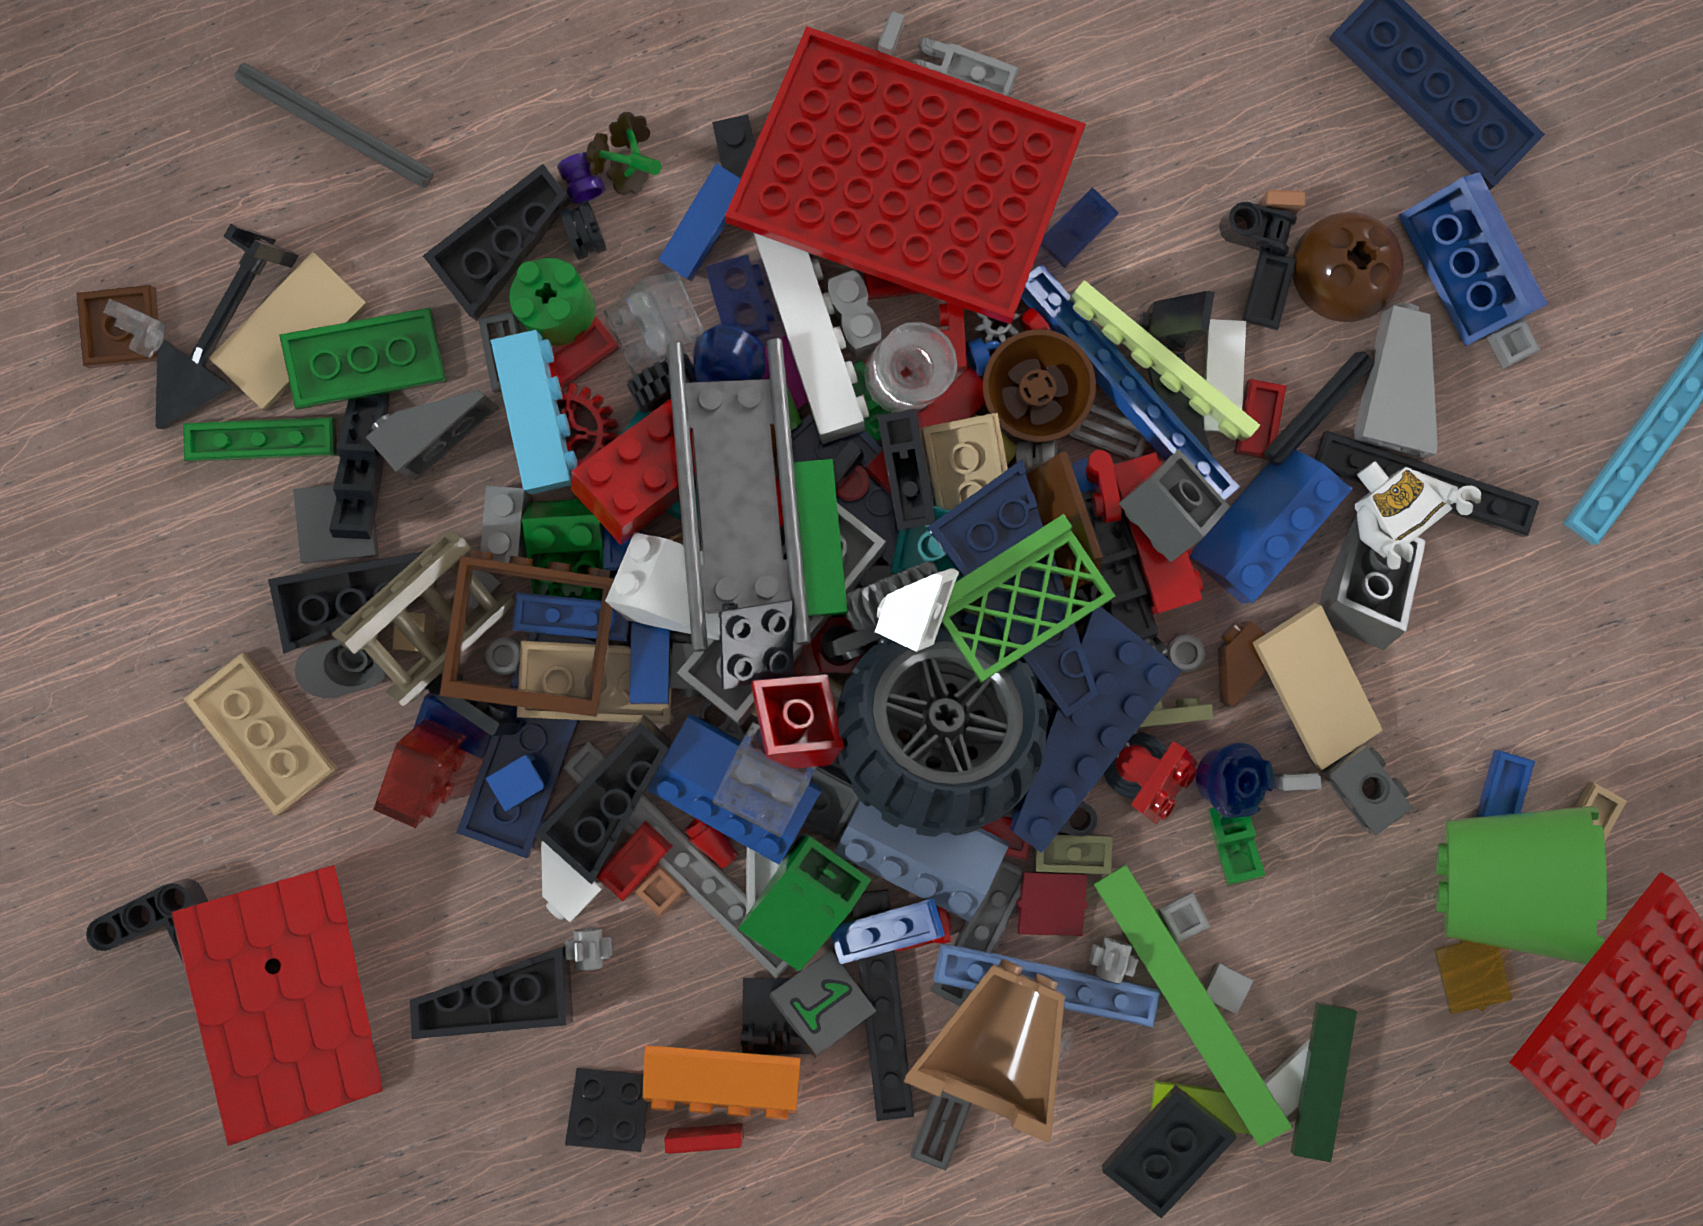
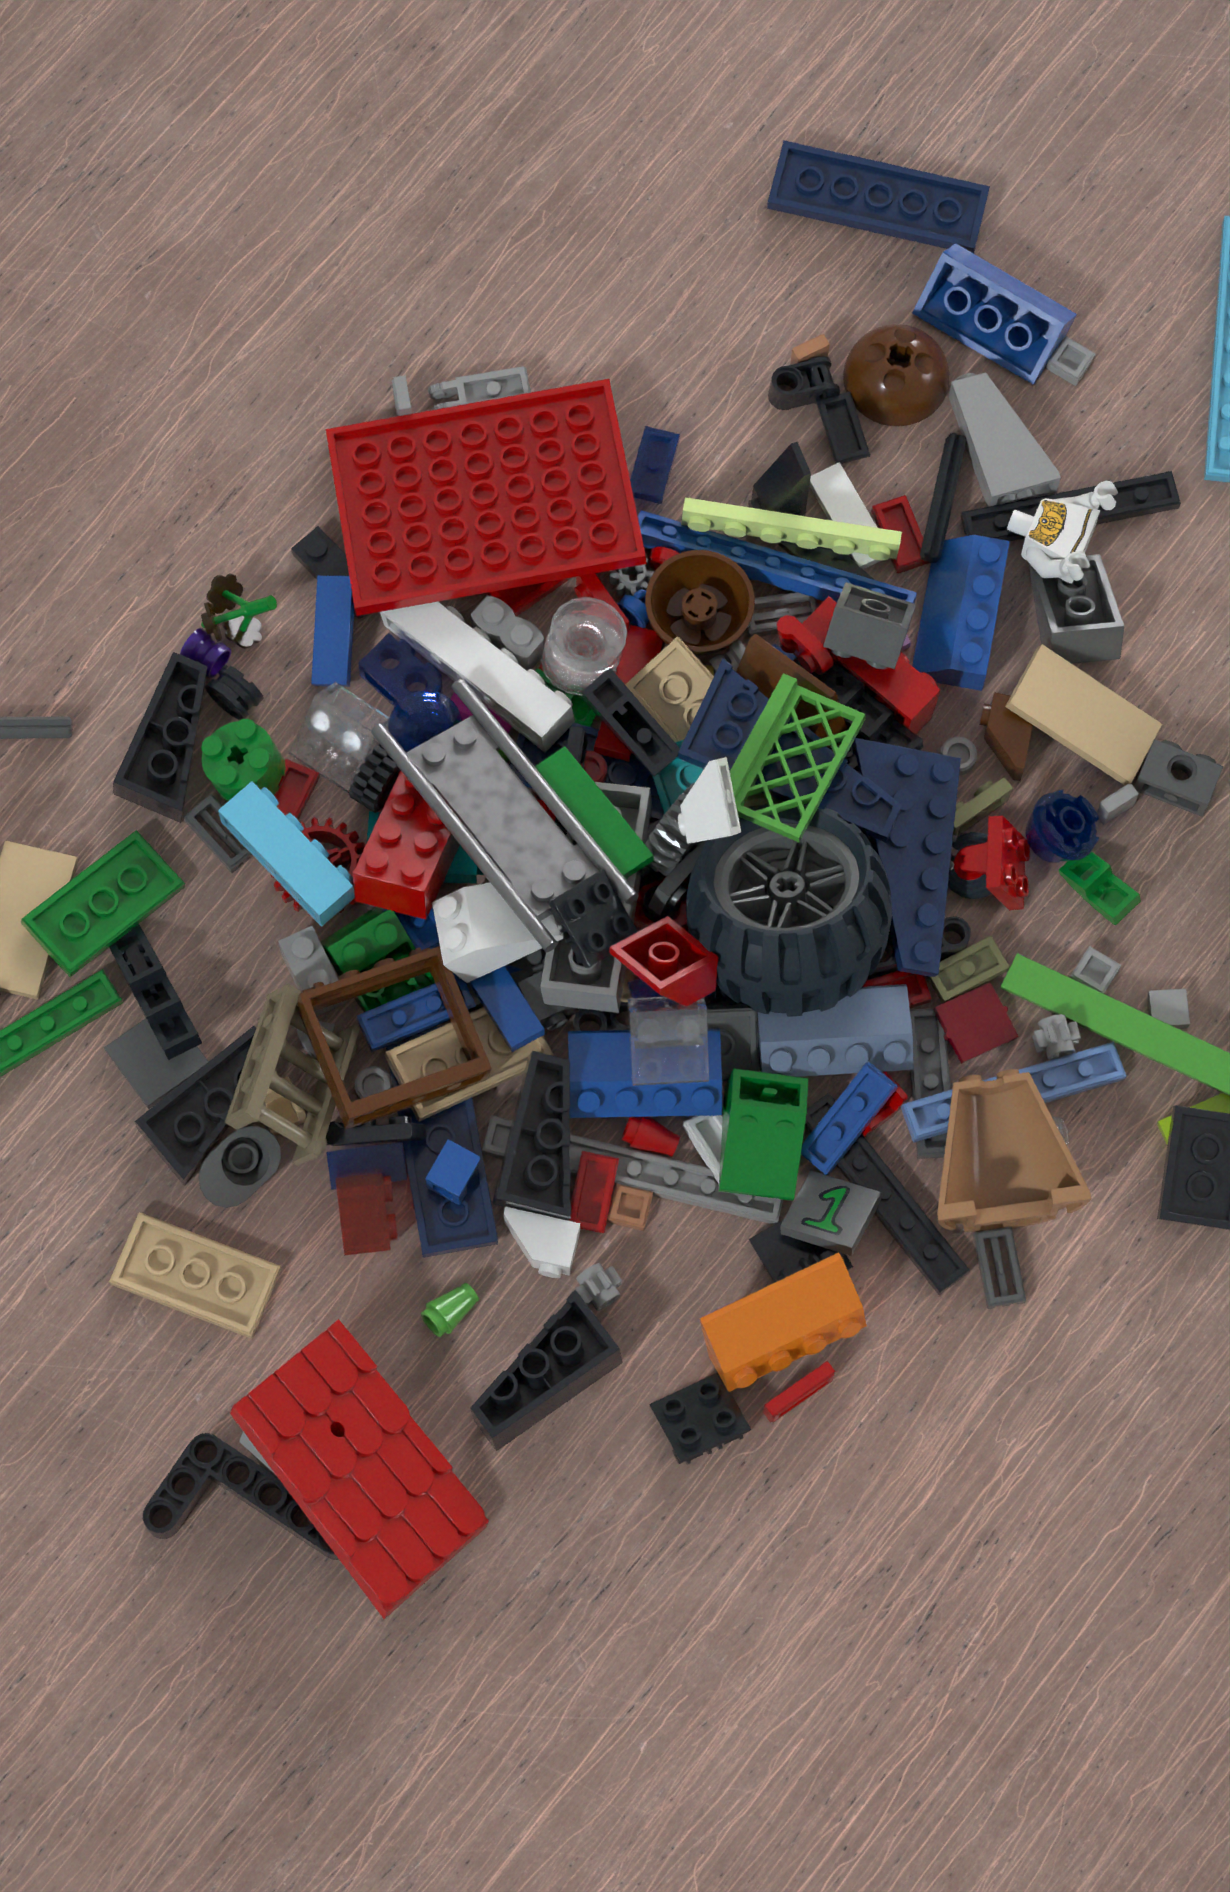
camera: 30 degrees left, 15 degrees down
(424, 434) = (197, 926): dark grey slope -> none
(453, 891) = (449, 1309): none -> bright green cone

